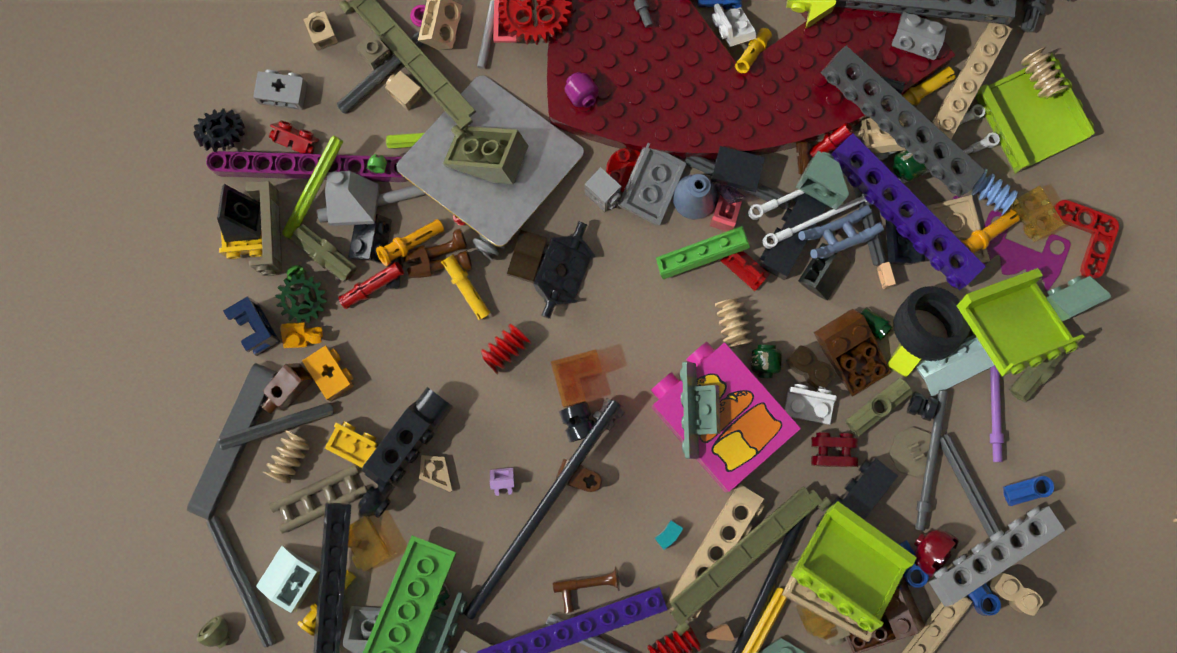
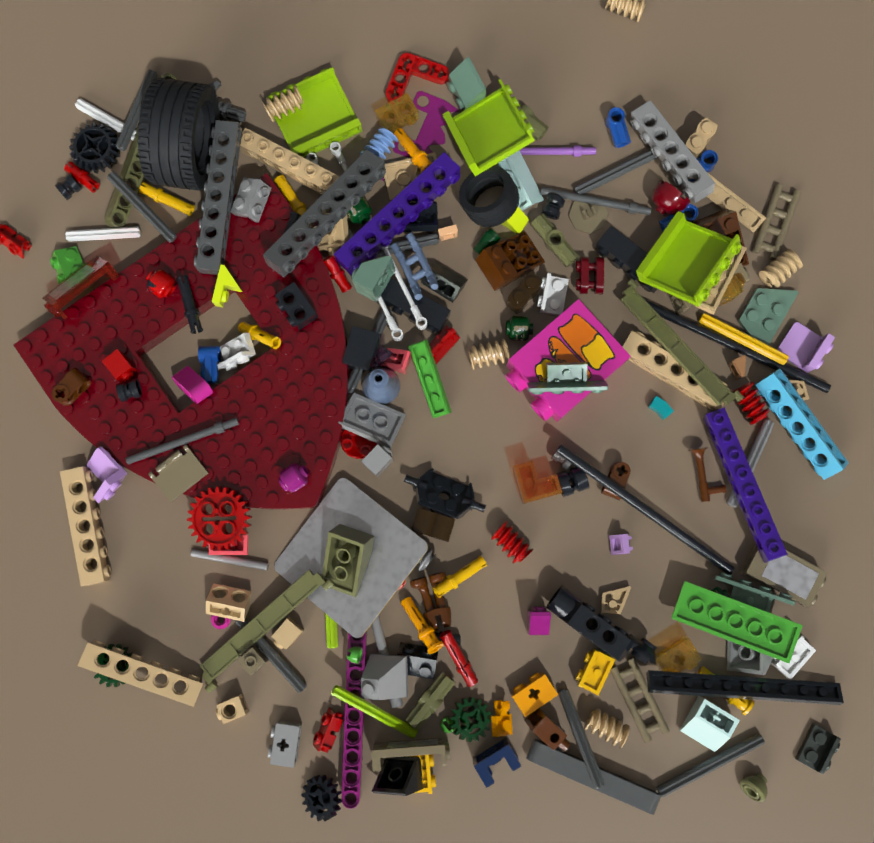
camera: 90 degrees left, 0 degrees up
(412, 378) = (538, 620): none -> magenta slope
(790, 93) = (299, 304): none -> black brick
(803, 158) = (351, 296): reddish brown axle -> none

